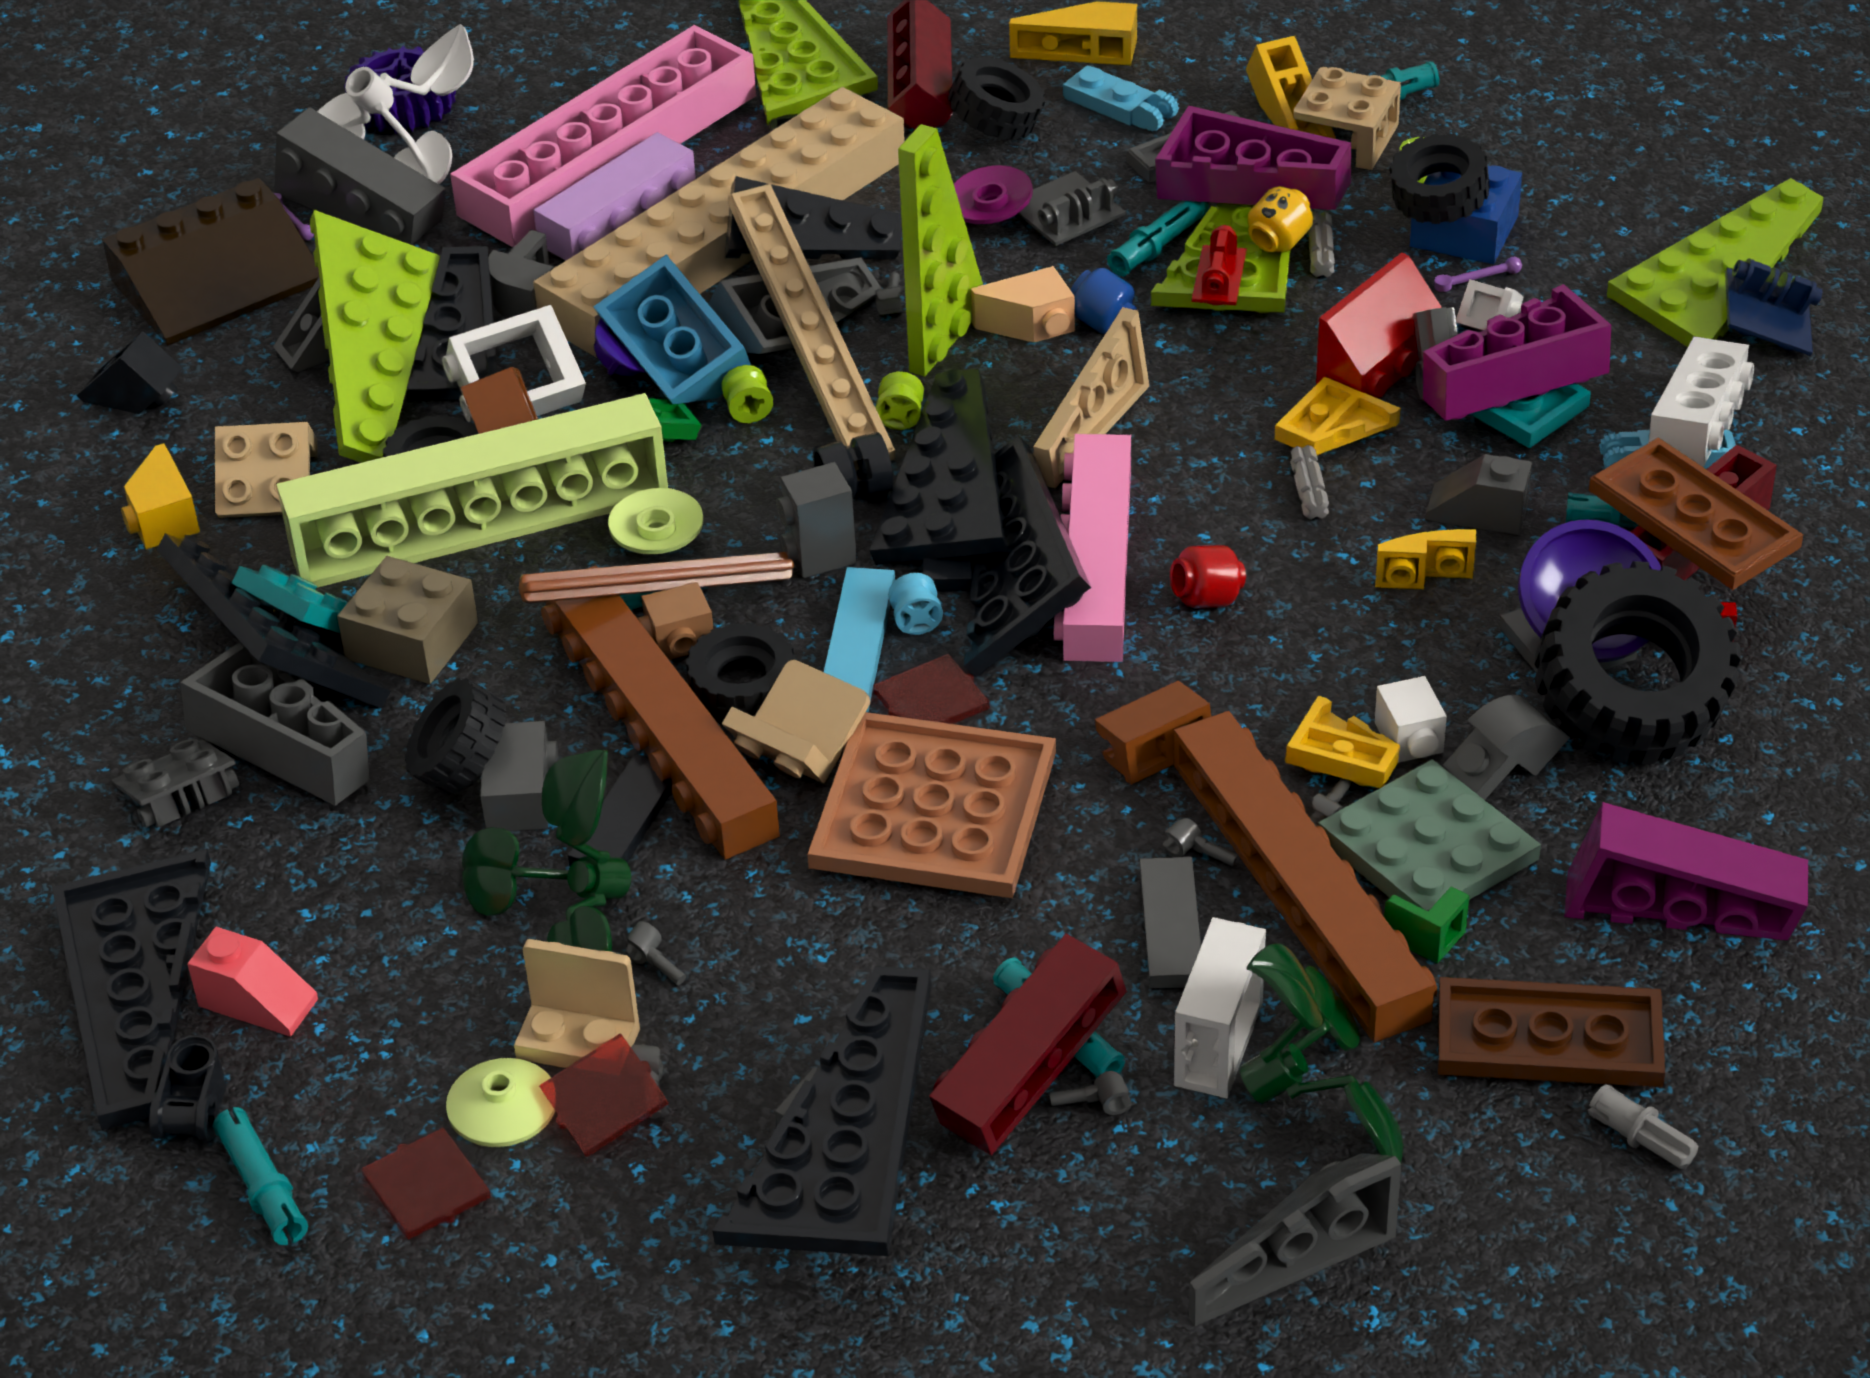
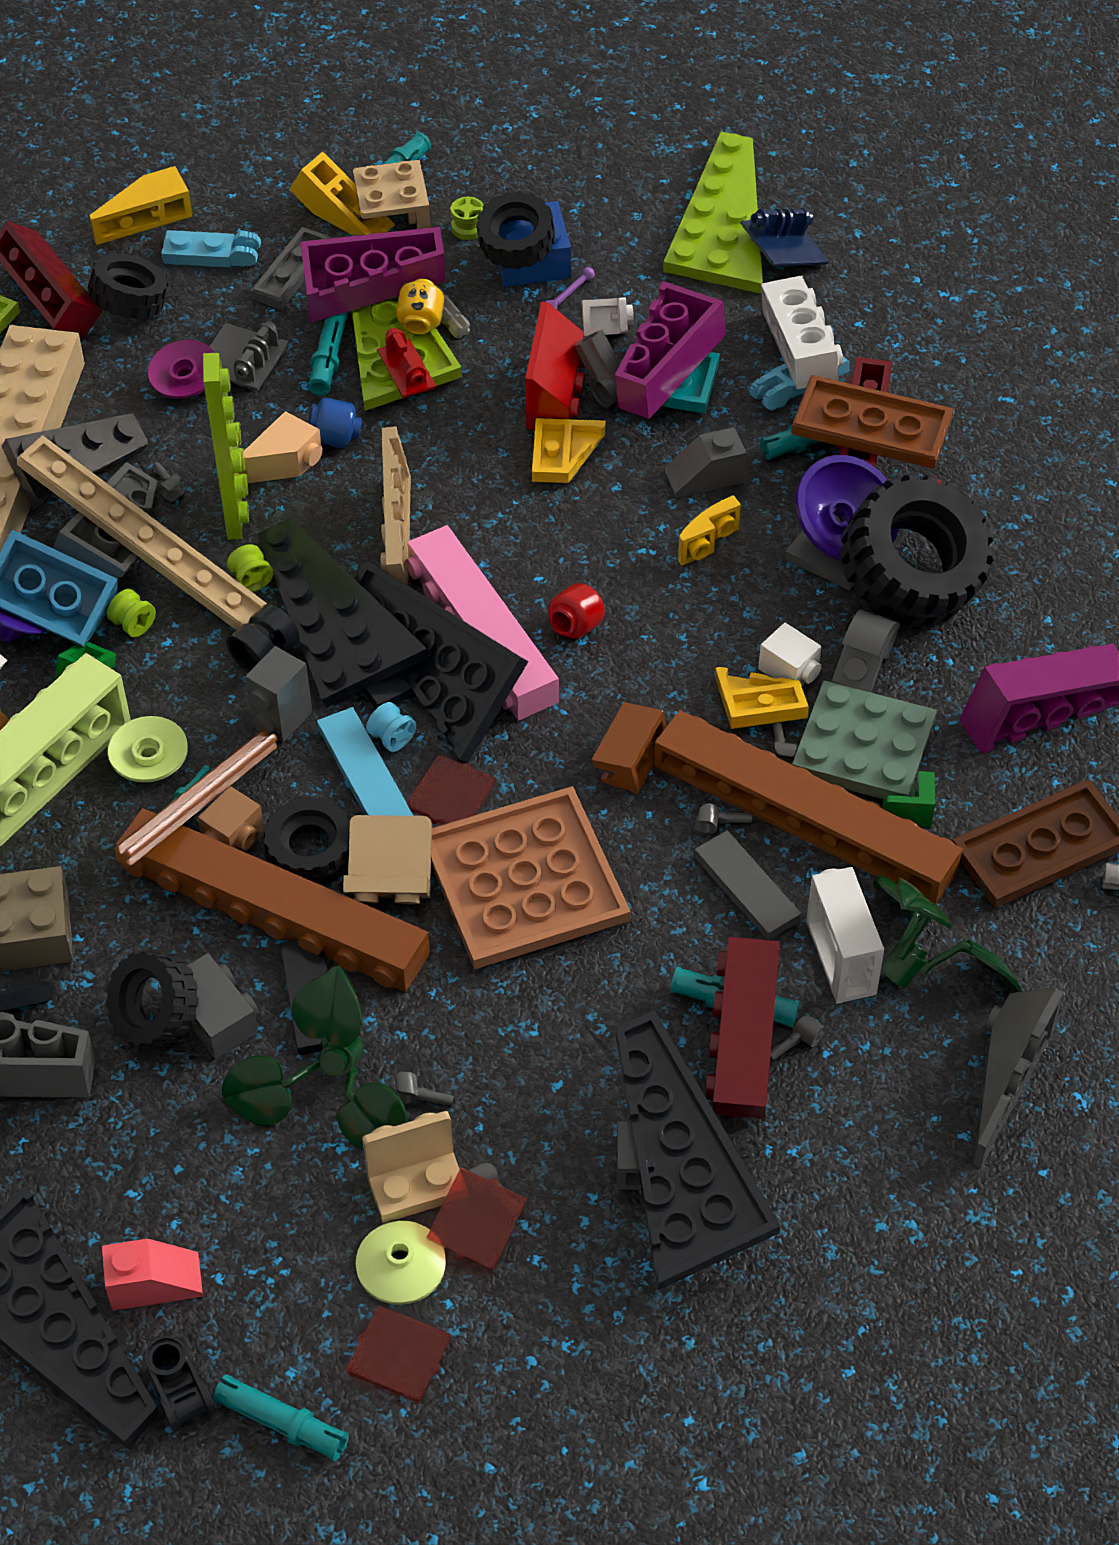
camera: 35 degrees left, 10 degrees up
(1309, 482) = (582, 504): light grey axle -> none

